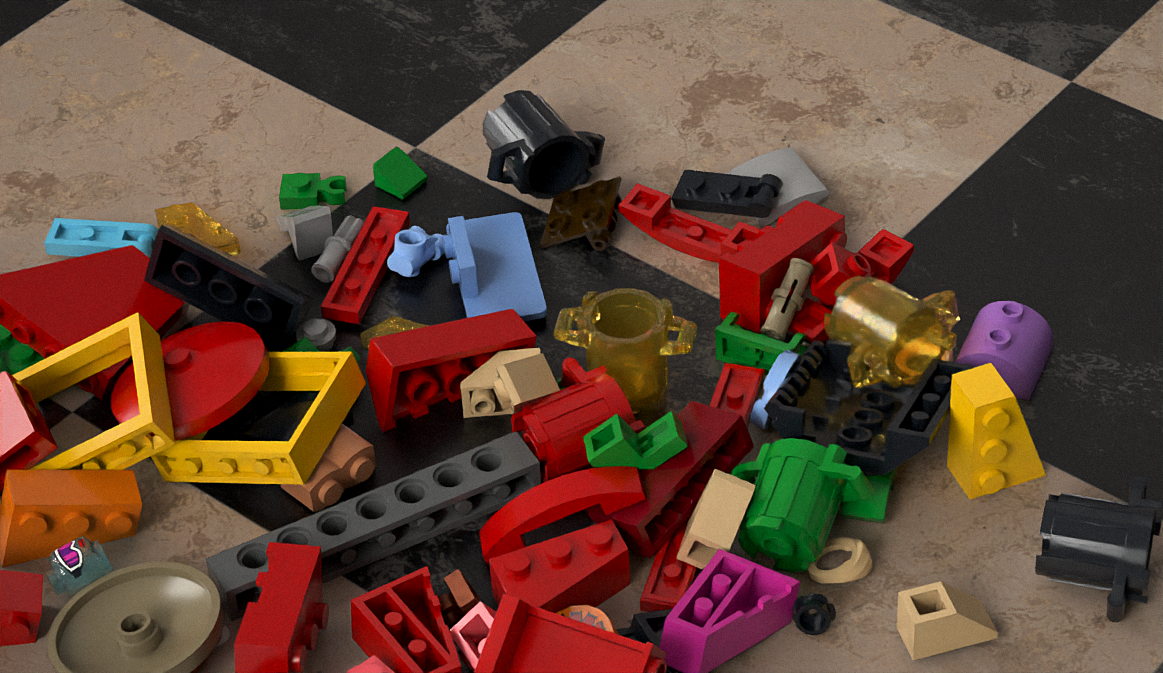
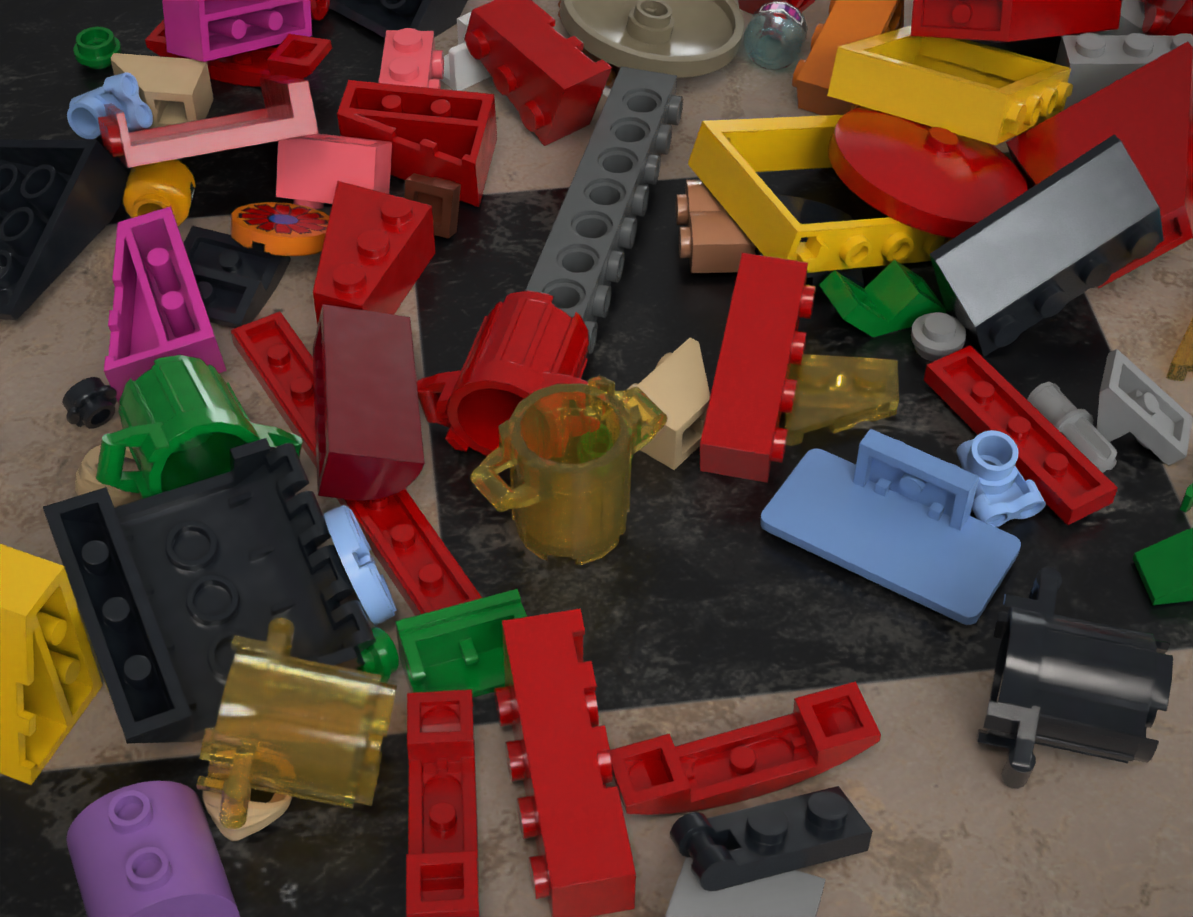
camera: 130 degrees right, 5 degrees up
(524, 382) = (605, 334): tan slope -> none
(557, 498) = (401, 307): red slope -> none
(586, 213) = (898, 675): dark brown hinge -> none
(619, 445) = (416, 357): green slope -> none
(715, 518) = (258, 374): tan slope -> none
(798, 277) = (474, 686): dark tan pin -> none
(832, 269) = (440, 766): red brick -> none

